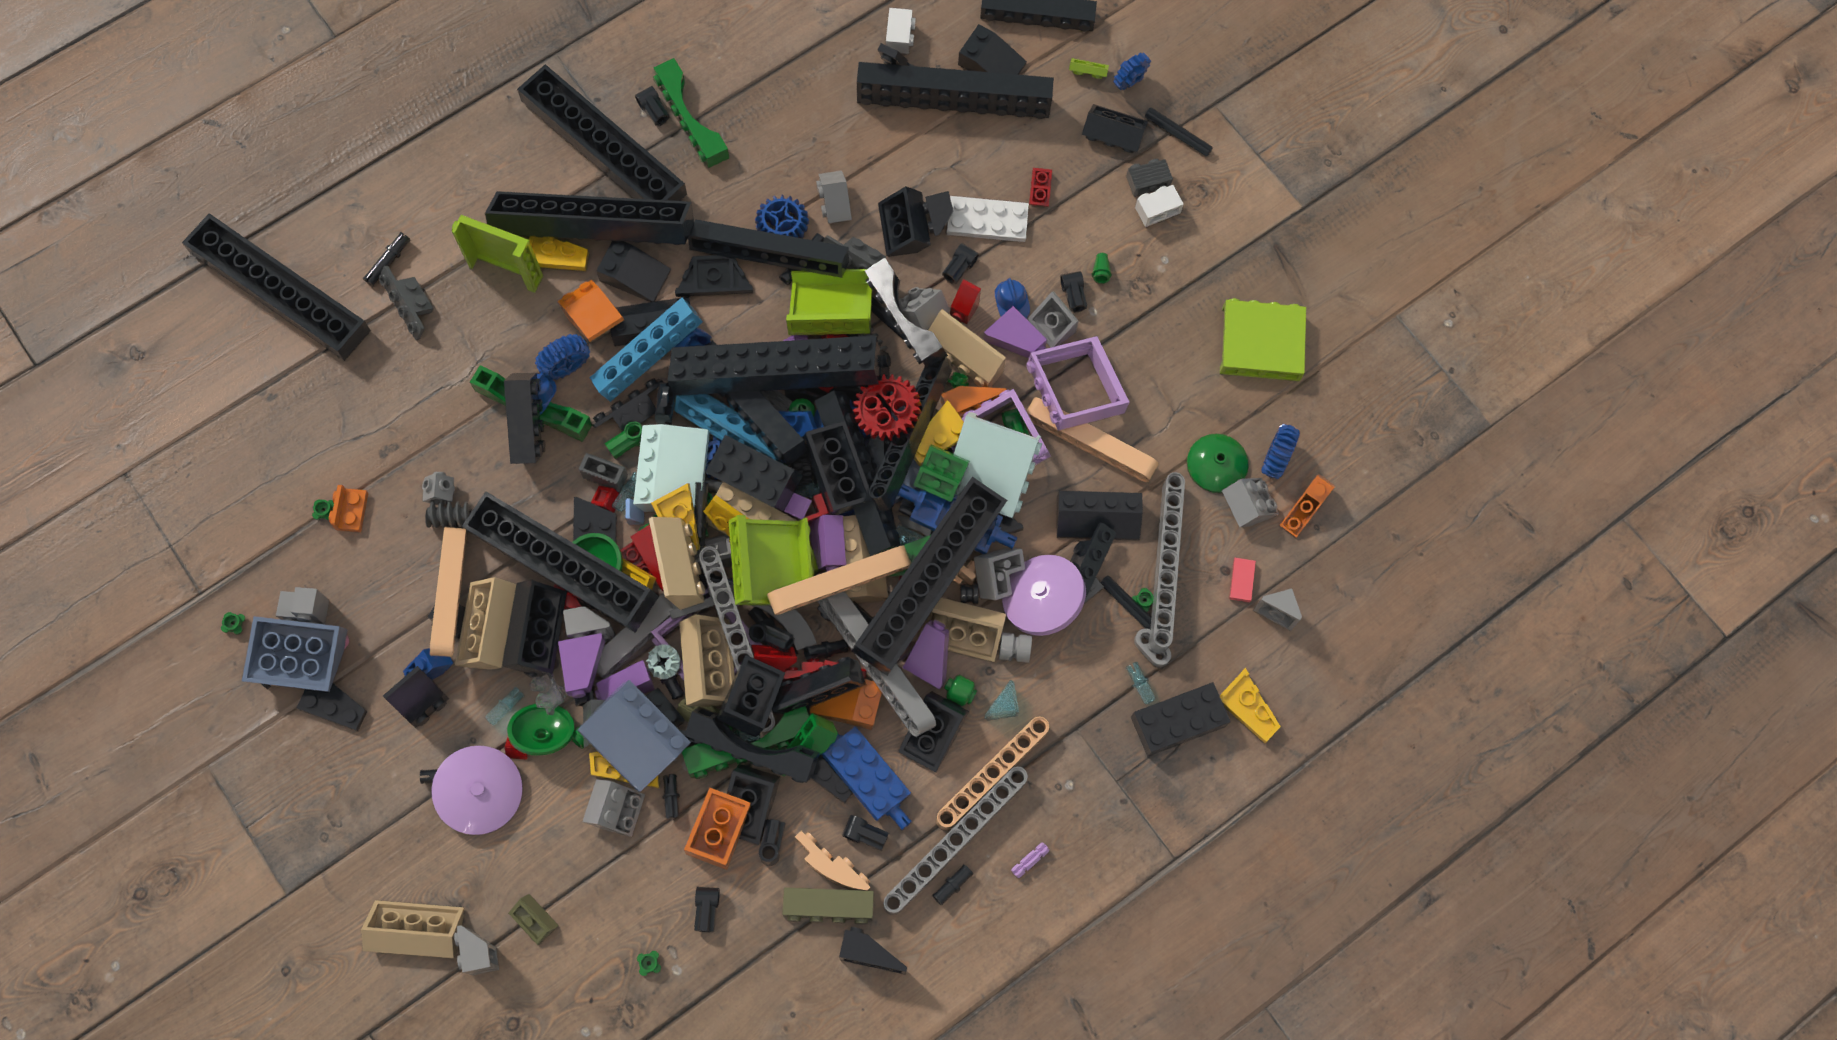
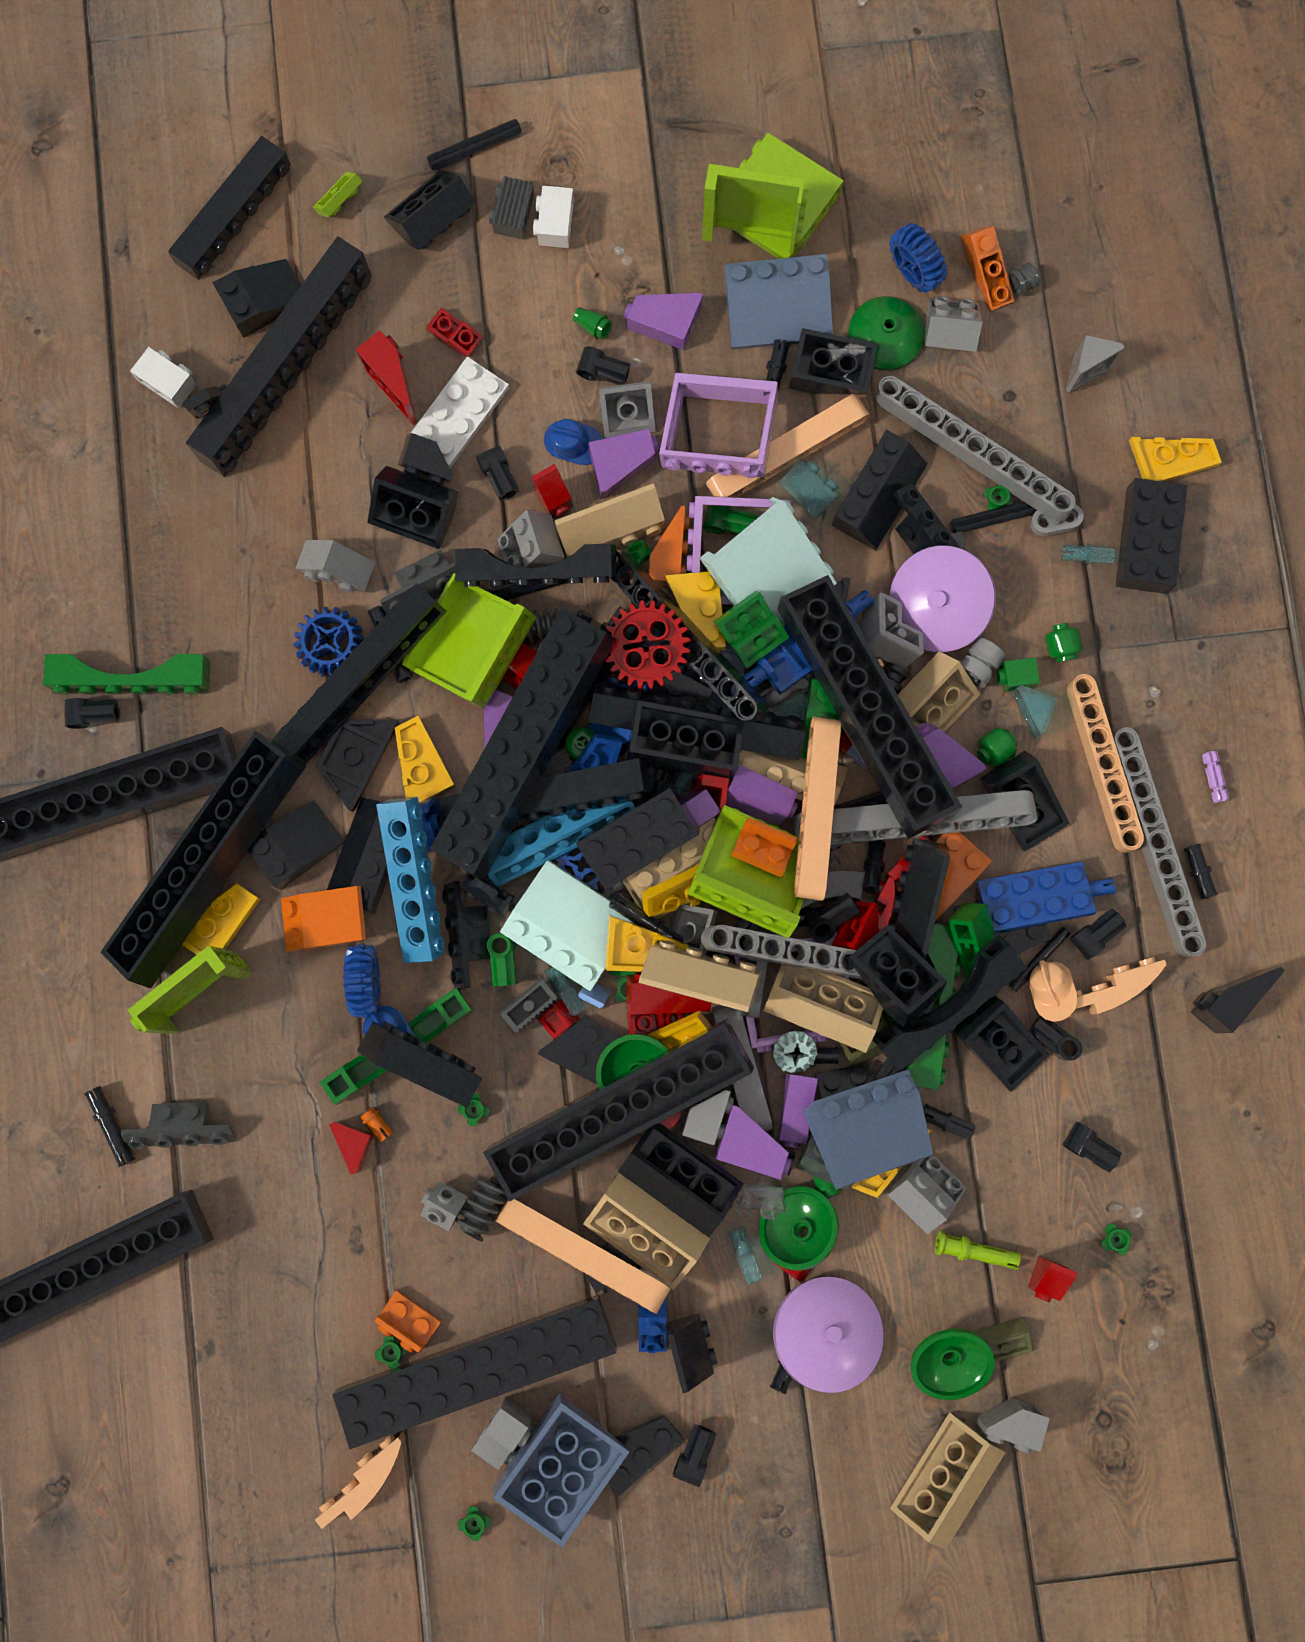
camera: 55 degrees left, 10 degrees up
(231, 539) = (371, 1475): none -> light nougat slope
(337, 569) = (474, 1371): none -> black brick
(342, 744) = (692, 1462): none -> black piece
(450, 412) = (352, 1143): none -> red slope
(472, 419) = (375, 1122): none -> orange pin
(489, 887) = (952, 1364): none -> green dish
(510, 472) = (473, 1118): none -> green plate
(586, 855) = (964, 1248): none -> lime pin
(594, 926) = (1051, 1279): none -> red slope
(717, 828) = (1015, 1090): orange slope -> none
(731, 321) = (421, 765): none -> yellow wing
(792, 559) = (764, 847): none -> orange bracket
(805, 818) = (1053, 991): none -> light nougat piece
(827, 803) = (1043, 954): none -> black bar
(828, 904) = (1155, 1014): olive brick -> none
(985, 161) = (384, 366): none -> red slope
(1023, 678) = (1018, 673): none -> green brick
(1064, 698) = (1063, 642): none -> green head
(1073, 468) = (810, 487): none -> clear light blue bracket
(1132, 71) = (374, 148): blue gear -> none
(1135, 312) = (664, 316): none -> medium lavender slope
(1146, 401) = (777, 365): none -> black pin
(1167, 433) = (832, 364): none -> black slope
(1192, 378) = (777, 299): none -> sand blue slope
(1236, 310) = (754, 203): none -> lime panel
(1242, 580) = (1031, 384): coral tile -> none
(1315, 533) = (1024, 279): none -> dark grey wheel

